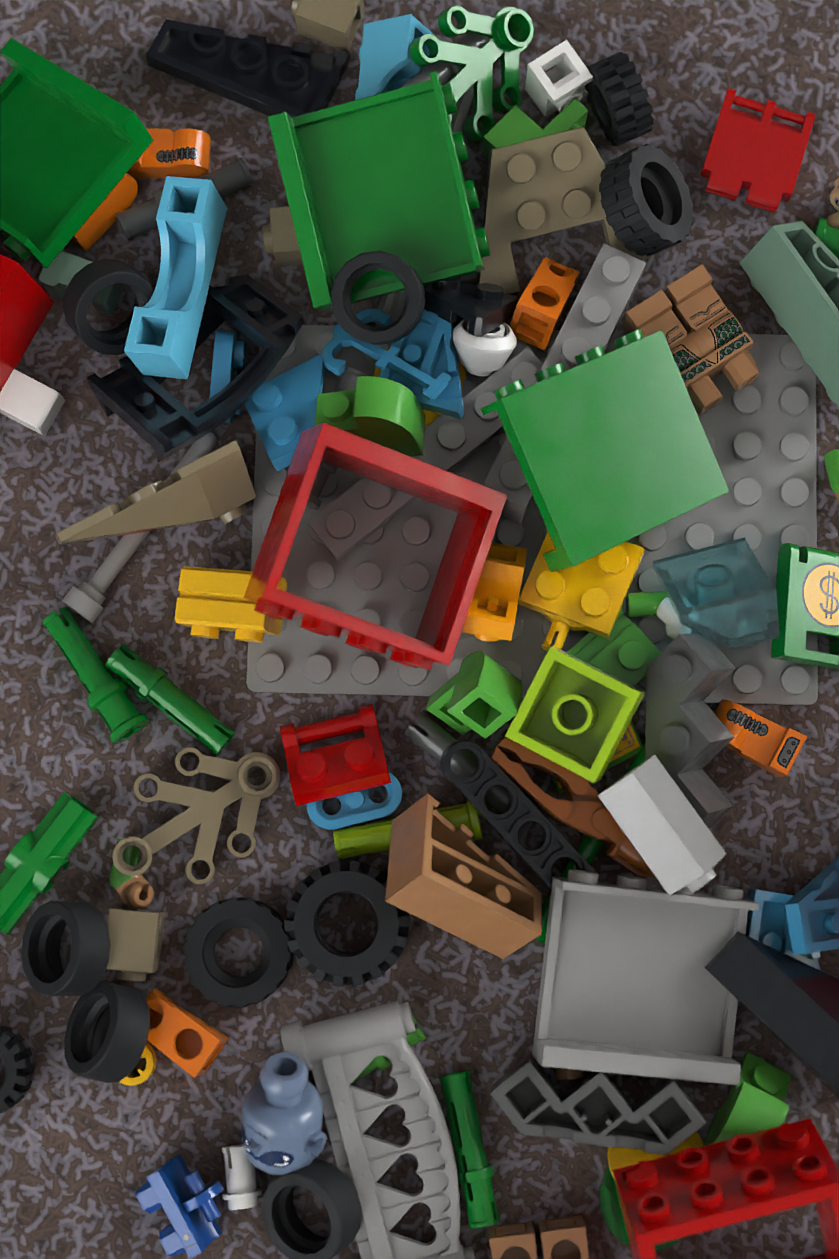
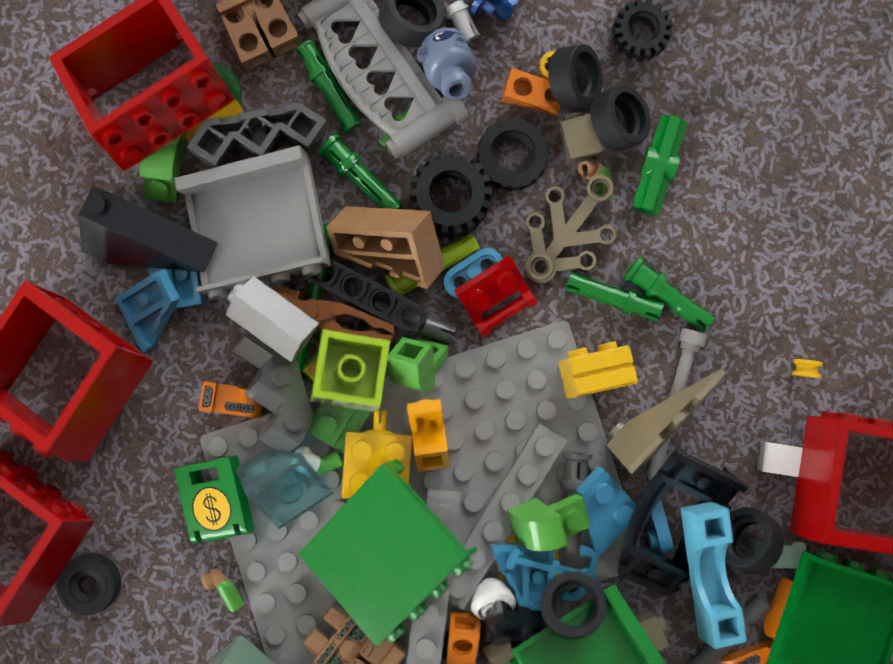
camera: 155 degrees right, 5 degrees up
(458, 573) = (457, 431): red window -> none
(477, 1018) = (350, 166): none -> green pin

